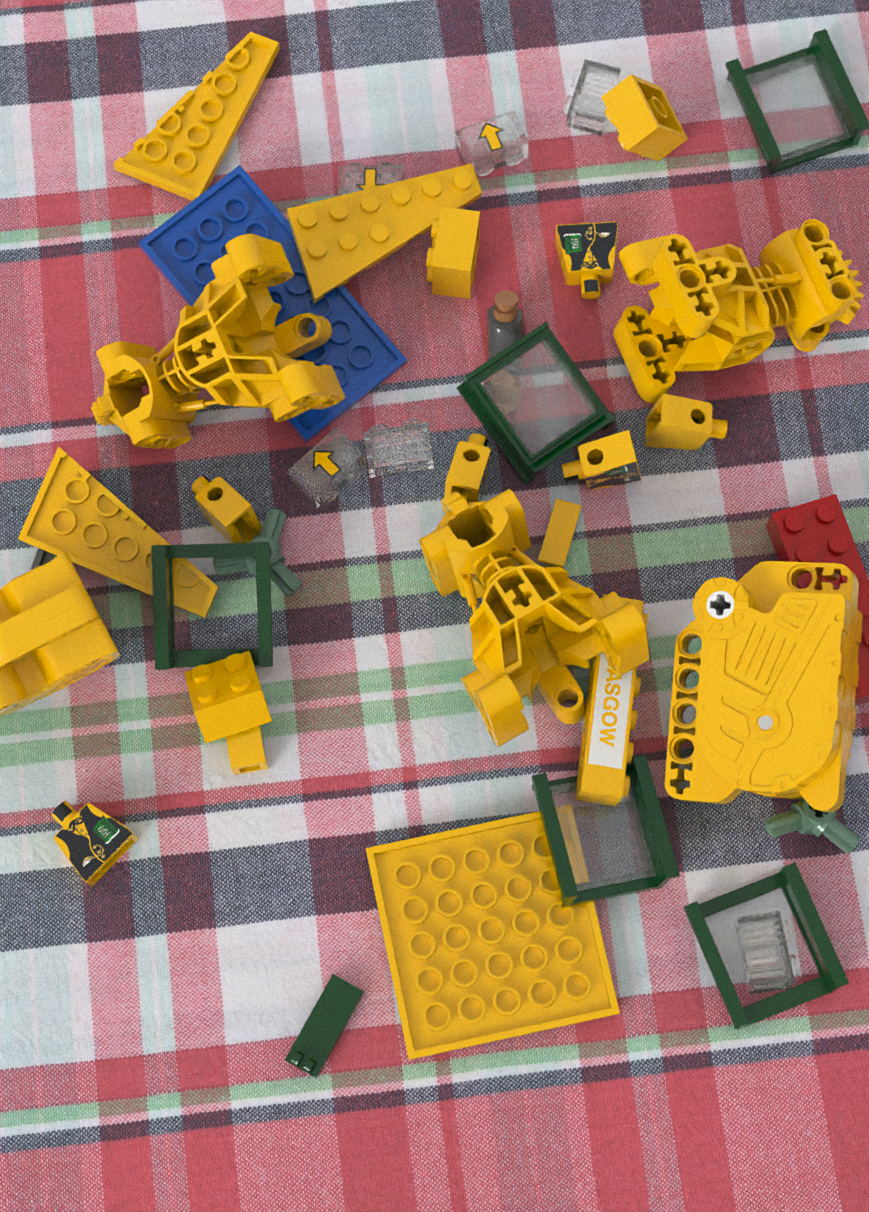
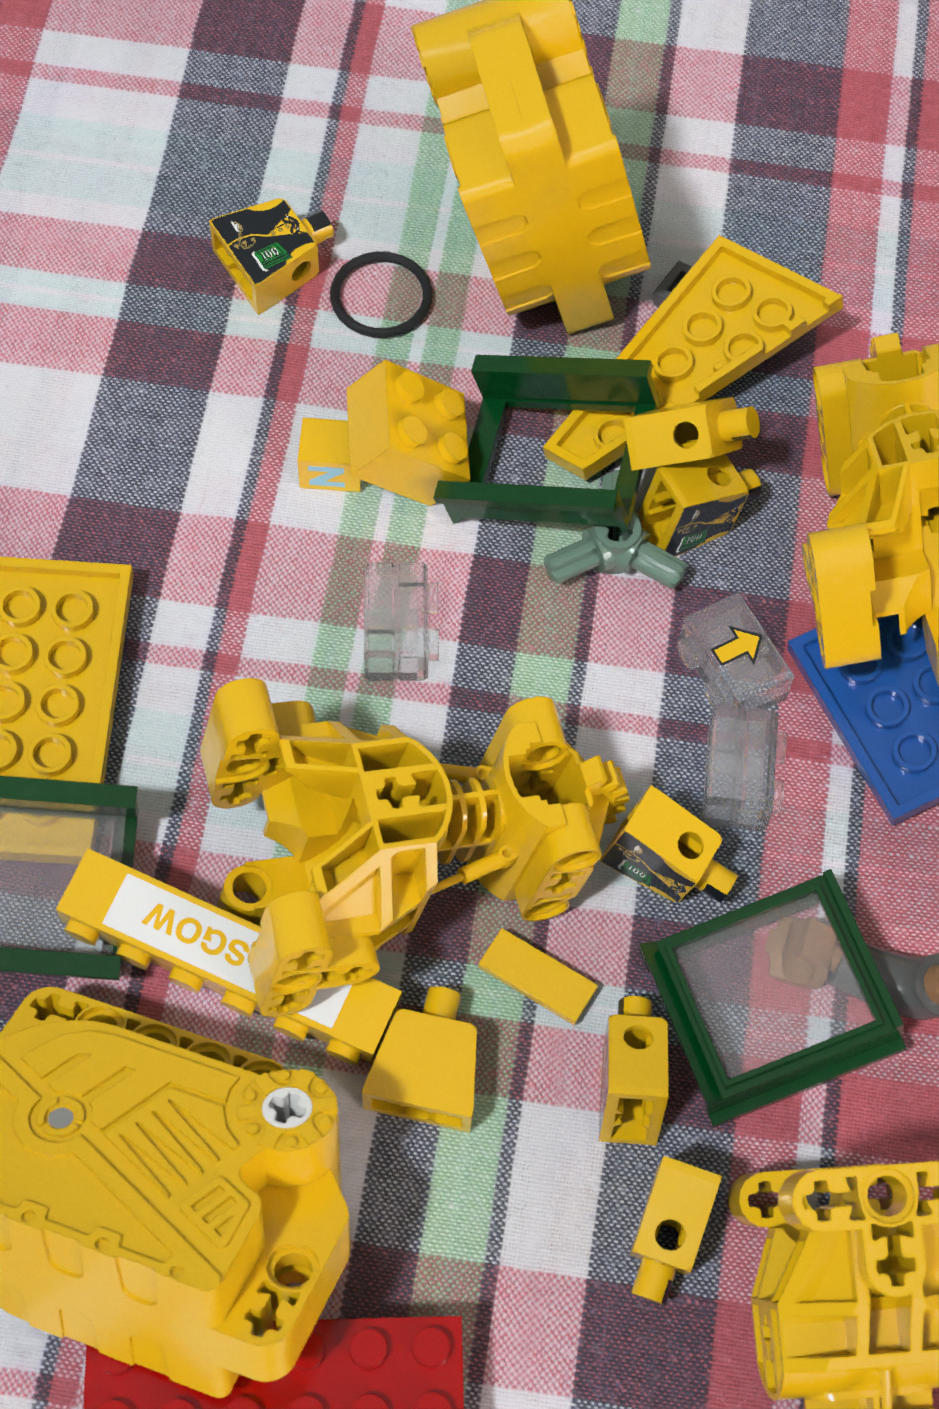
camera: 100 degrees right, 10 degrees down
(109, 790) = (381, 332): none -> black tyre
(193, 514) = (688, 432): none -> yellow torso
(357, 671) = (397, 621): none -> clear brick
(634, 573) = (426, 1065): none -> yellow torso

